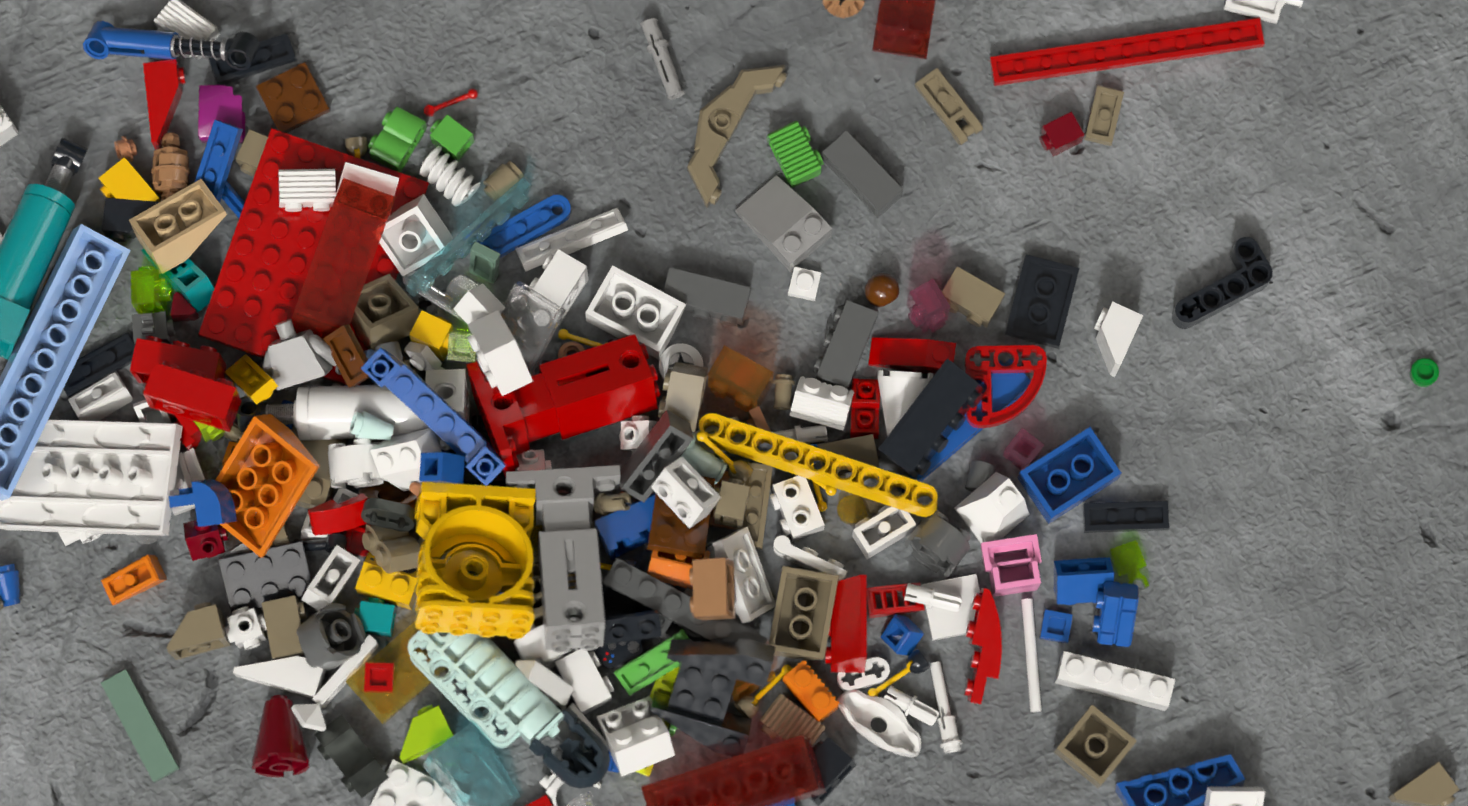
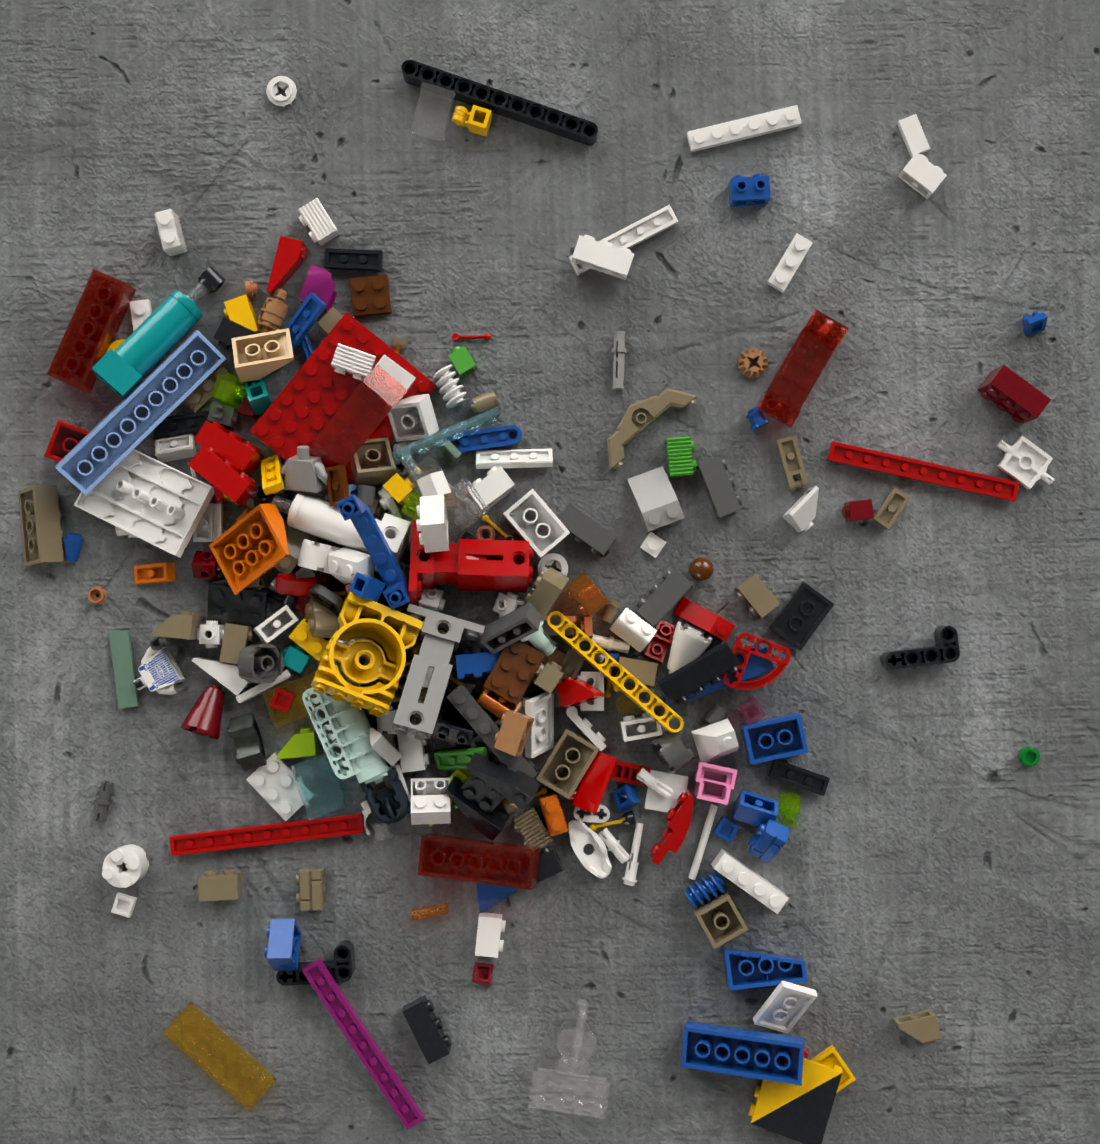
camera: 20 degrees right, 10 degrees up
(72, 634) = (94, 591): none -> nougat plate
(108, 40) = (264, 211): piece -> none
(115, 307) = (202, 394): none -> dark tan hinge
(192, 706) = (160, 671): none -> torso
(211, 501) = (214, 546): blue brick -> none
(309, 716) = (229, 707): white slope -> none
(370, 427) = (332, 538): light aqua cone -> none
(397, 139) = (426, 349): bright green brick -> none
(609, 503) = (467, 645): dark tan pin -> none
(685, 492) = (520, 662): white brick -> none
(736, 469) = (561, 654): hinge -> none
(777, 512) = (576, 691): none -> red slope
(878, 65) = (757, 419): none -> blue brick
(928, 307) = (726, 594): clear pink brick -> none
(987, 162) = (803, 511): none -> white slope
(1058, 715) = (705, 889): none -> blue piece
(1115, 334) = (841, 659): white slope -> none

